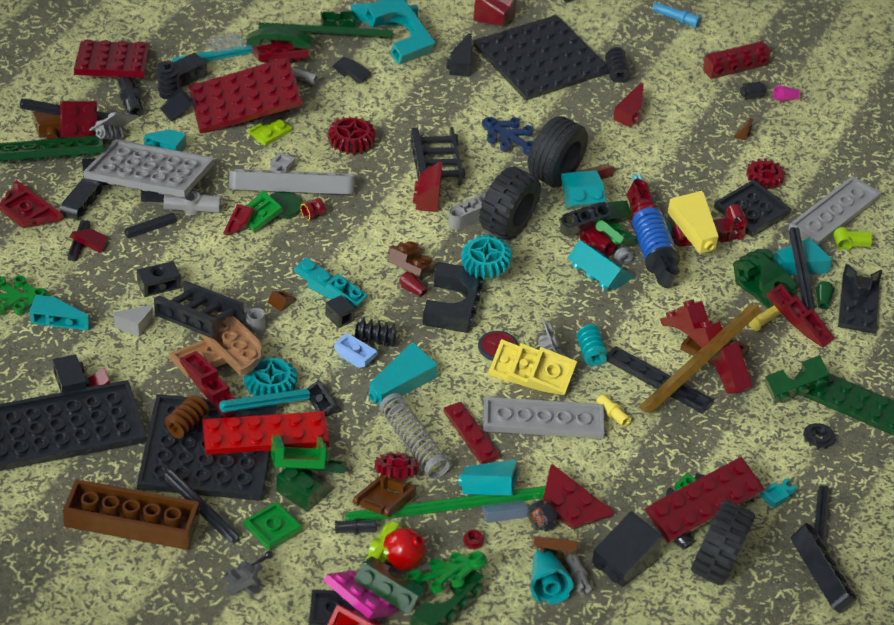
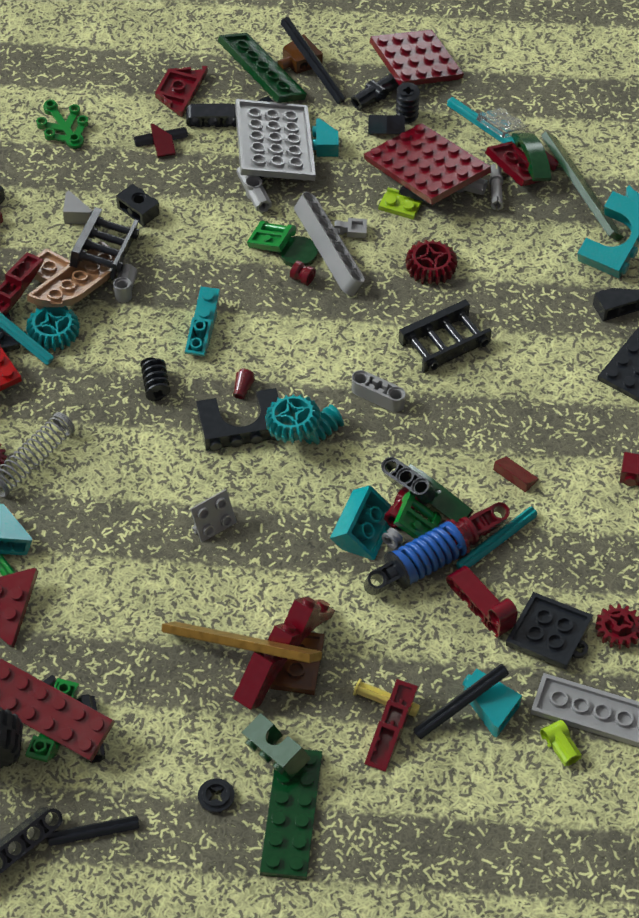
camera: 70 degrees right, 10 degrees up
(54, 312) = (55, 156): teal slope -> none
(77, 118) = (306, 67): dark red plate -> none
(112, 126) = (310, 86): light grey hinge -> none
(150, 225) = (210, 173): black axle -> none
(191, 69) = (441, 112): black brick -> none
(239, 219) = (251, 226): dark red tile -> none
(281, 299) = (168, 298): reddish brown slope -> none
(322, 399) = (52, 375): black slope -> none
(340, 311) = (169, 343): black brick -> none
(343, 15) = (600, 186): dark green piece -> none
(350, 67) = (536, 227): black slope -> none
(354, 350) = (126, 374): light blue slope -> none
(404, 374) = (108, 418): teal slope -> none
(410, 258) = (272, 367): reddish brown plate -> none
(428, 189) = (384, 348): dark red slope -> none
(471, 433) = (65, 498): dark red plate -> none
(490, 341) = (196, 479): dark red wheel -> none
(491, 125) = (525, 380): dark blue plant -> none
(510, 202) = (382, 408): black tyre -> none
(532, 367) = (171, 516): light yellow slope -> none
(543, 417) = (113, 547): light grey plate -> none
(557, 150) = (493, 420): black tyre -> none
(582, 189) = (465, 467): teal slope -> none
(592, 345) = (234, 550): teal piece -> none
(614, 410) = (154, 601): light yellow pin -> none
(655, 378) = (226, 620): black tile -> none
(694, 220) = (472, 576): light yellow slope -> none
(759, 275) = (435, 668): dark green piece -> none
(778, 494) = (107, 778): teal plate -> none
(824, 294) = (445, 740): dark green cone -> none
(859, 300) = (458, 779): black plate -> none

